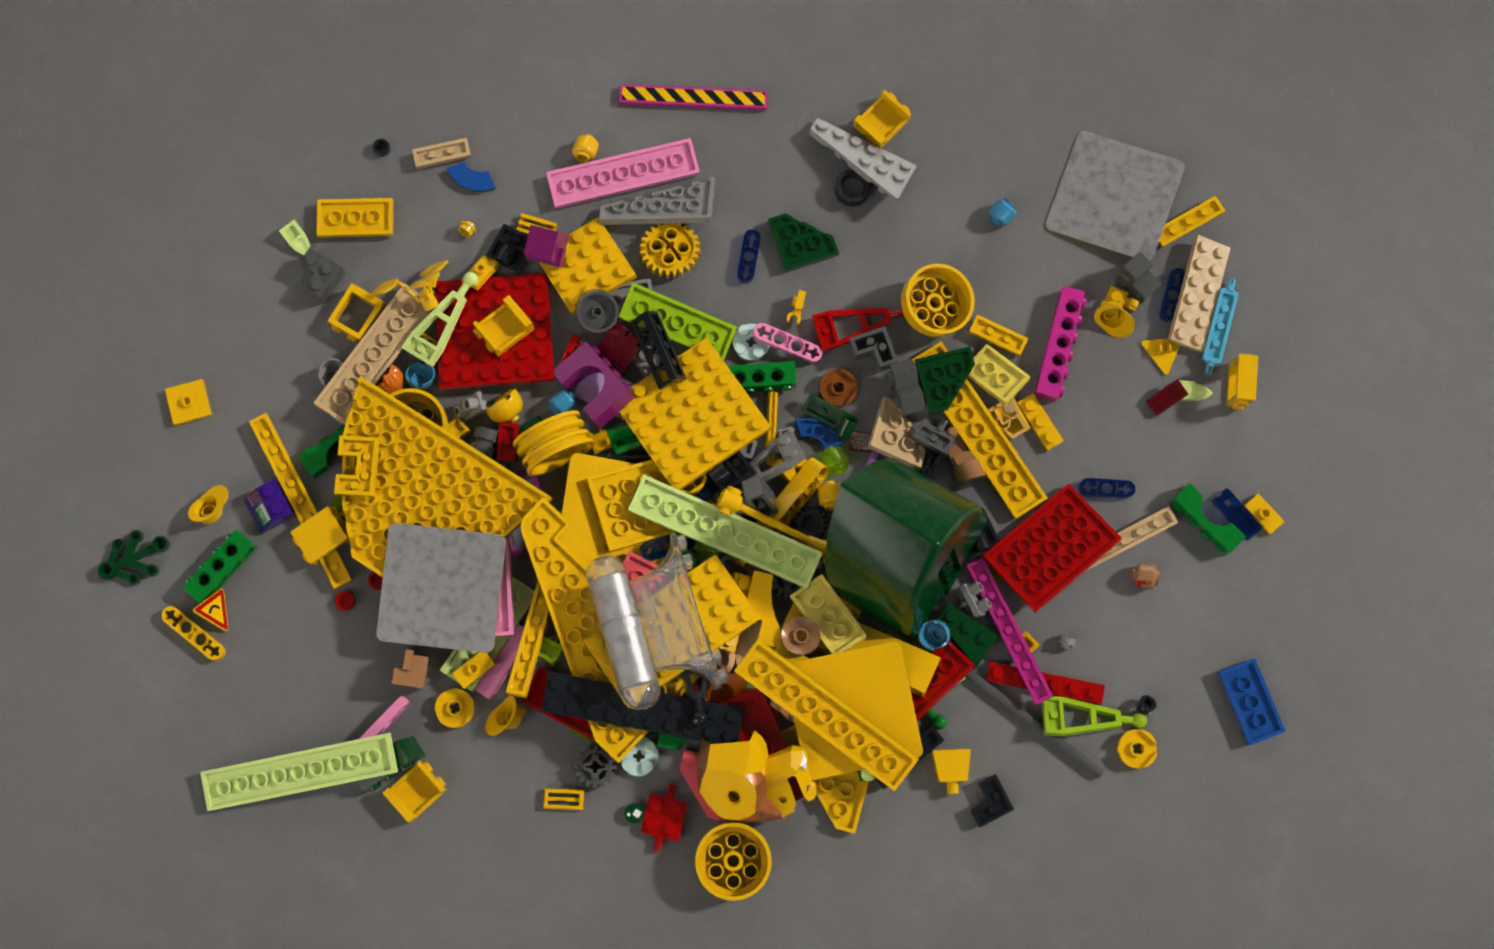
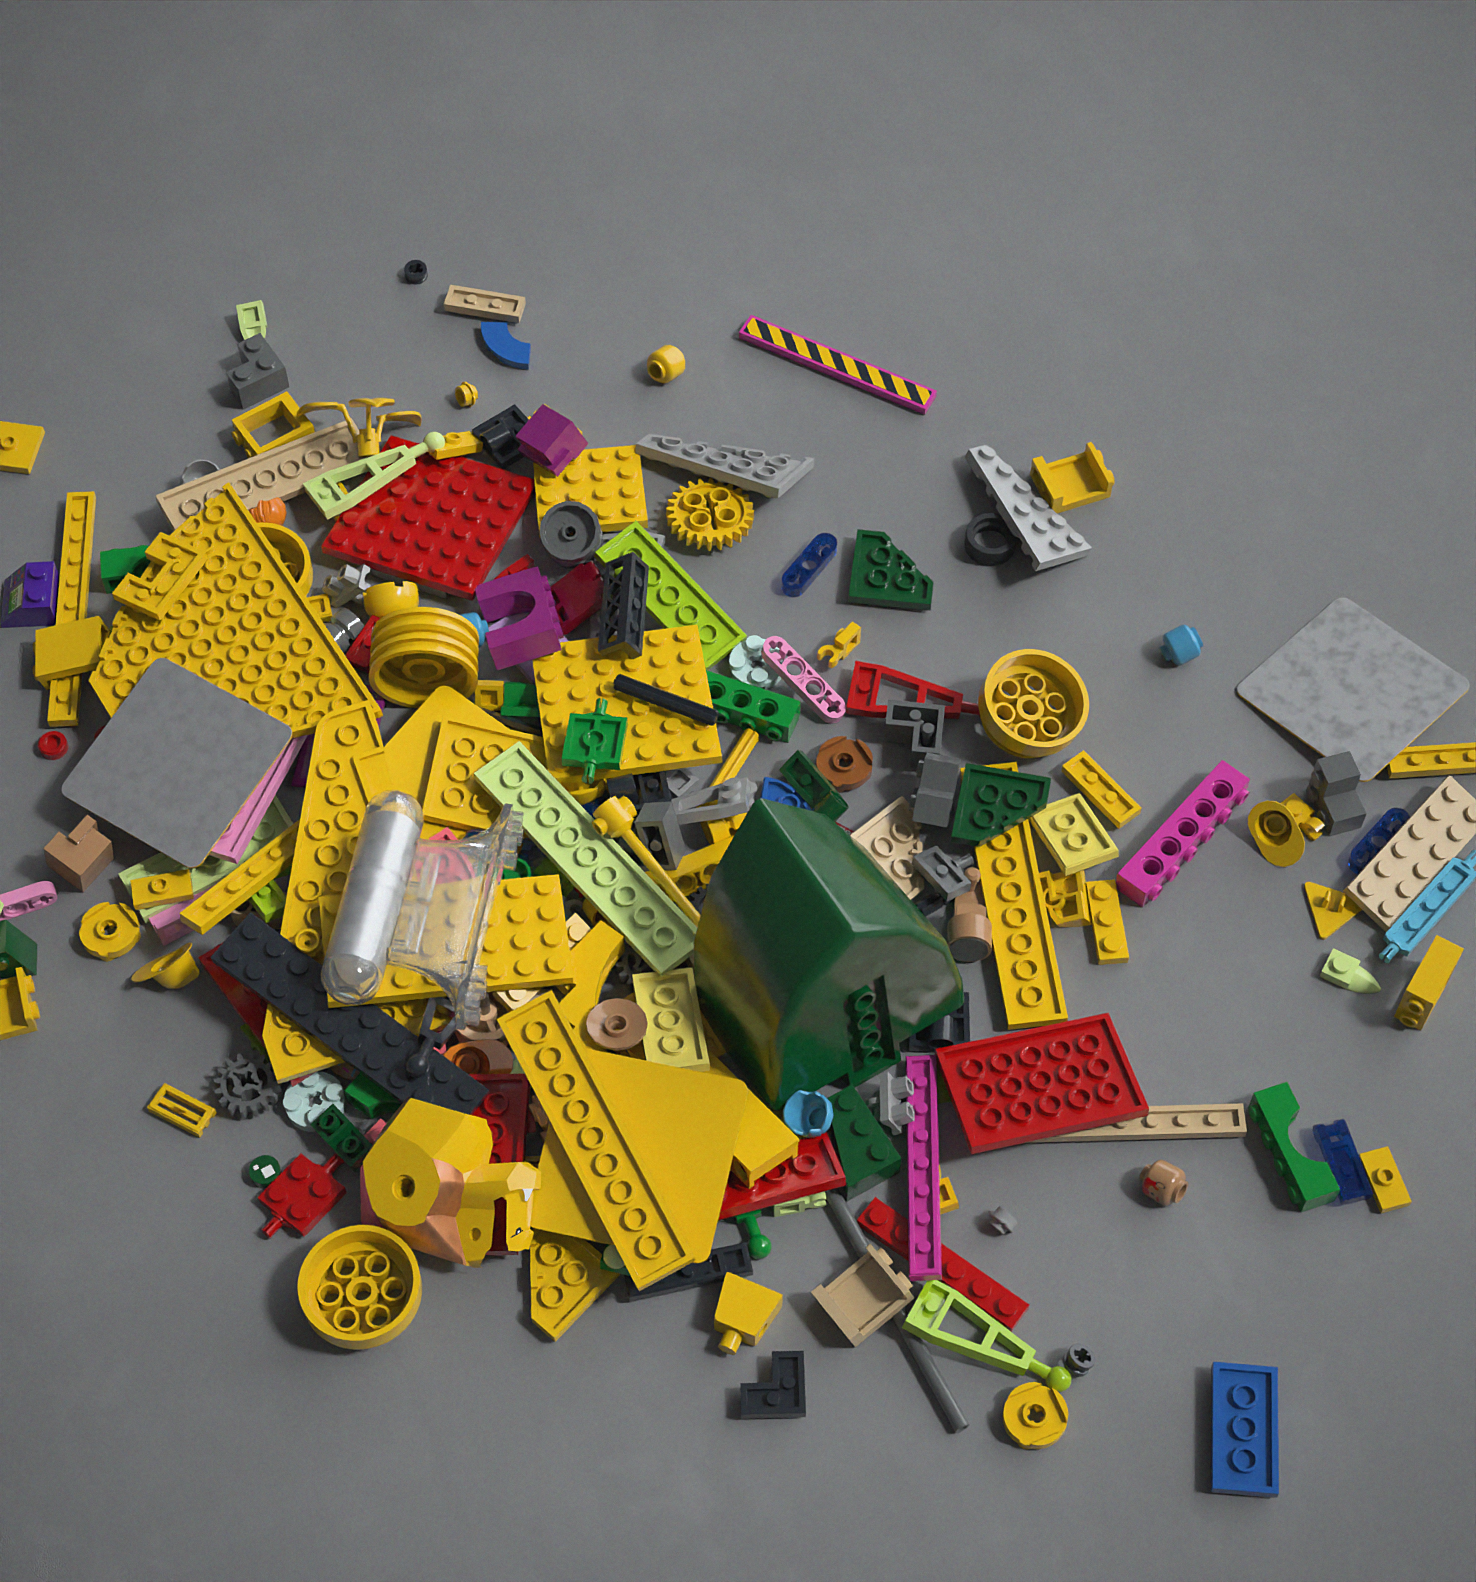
camera: 30 degrees right, 20 degrees down
(355, 217) = (337, 330): yellow plate -> none
(419, 375) = (308, 526): dark azure hair -> none
(503, 327) = (443, 510): yellow panel -> none
(597, 672) = (311, 936): none -> yellow plate
(623, 173) = (698, 410): bright pink plate -> none
(671, 773) = (342, 1136): none -> dark green slope
(692, 455) = (594, 741): none -> green plate
(718, 405) = (666, 699): none -> black axle
(1013, 725) = (865, 1295): none -> tan panel
(1093, 482) = (1178, 1063): clear blue beam -> none
(1167, 397) = (1308, 963): dark red tile -> none

